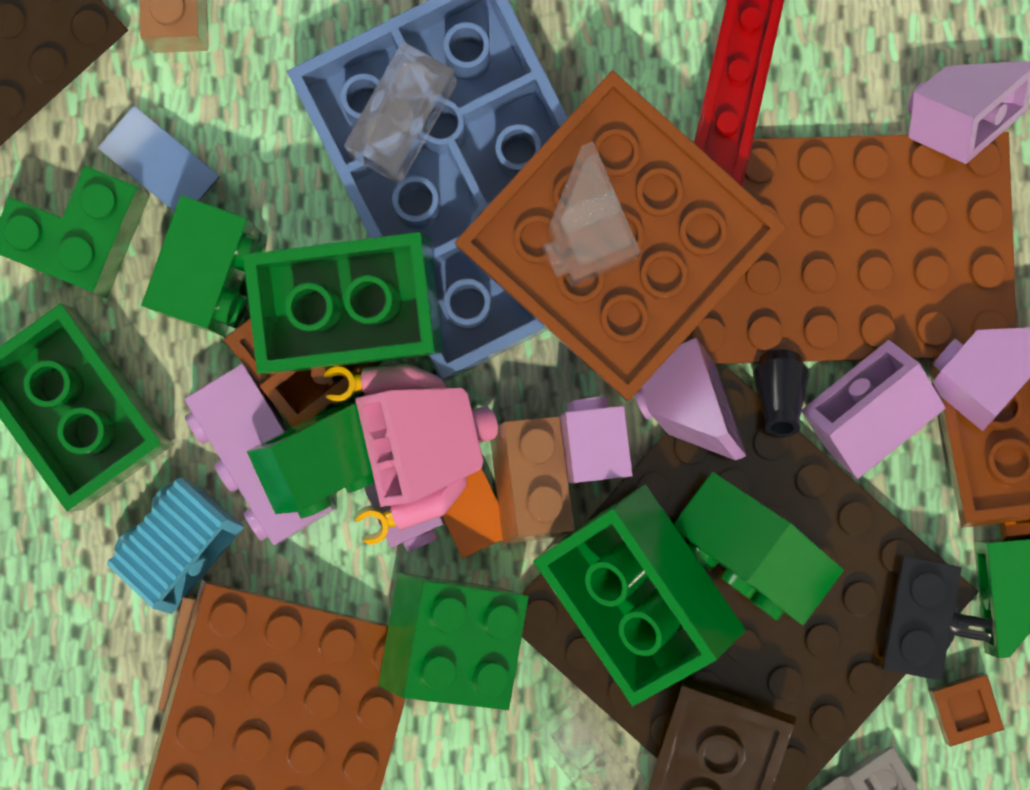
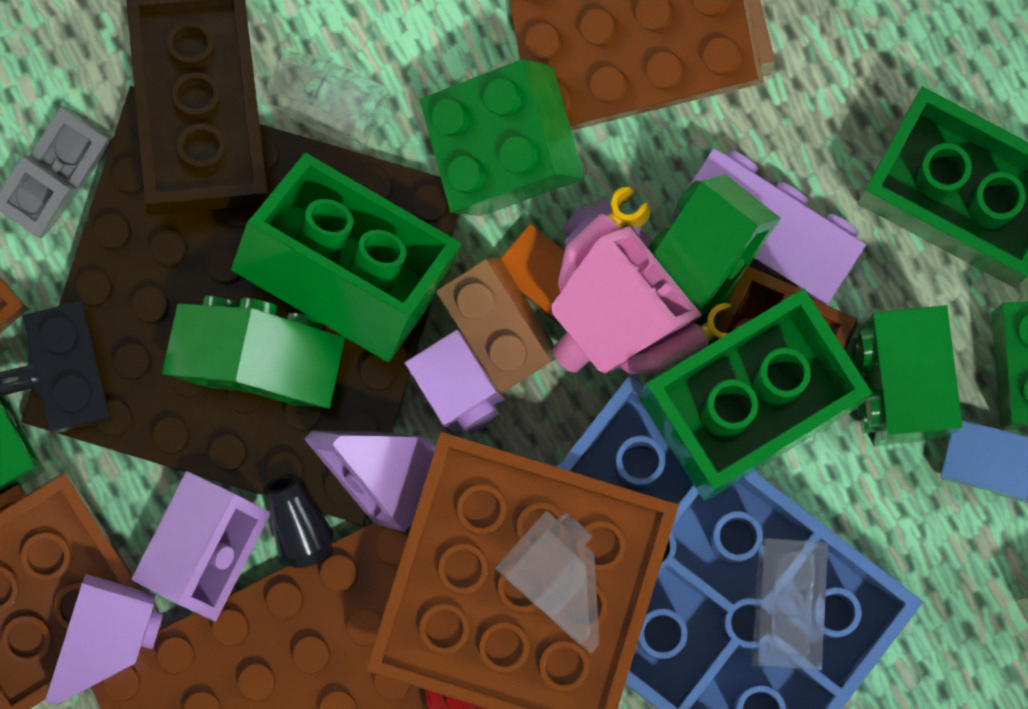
camera: 165 degrees right, 5 degrees down
(174, 544) = (808, 108): medium azure brick -> none

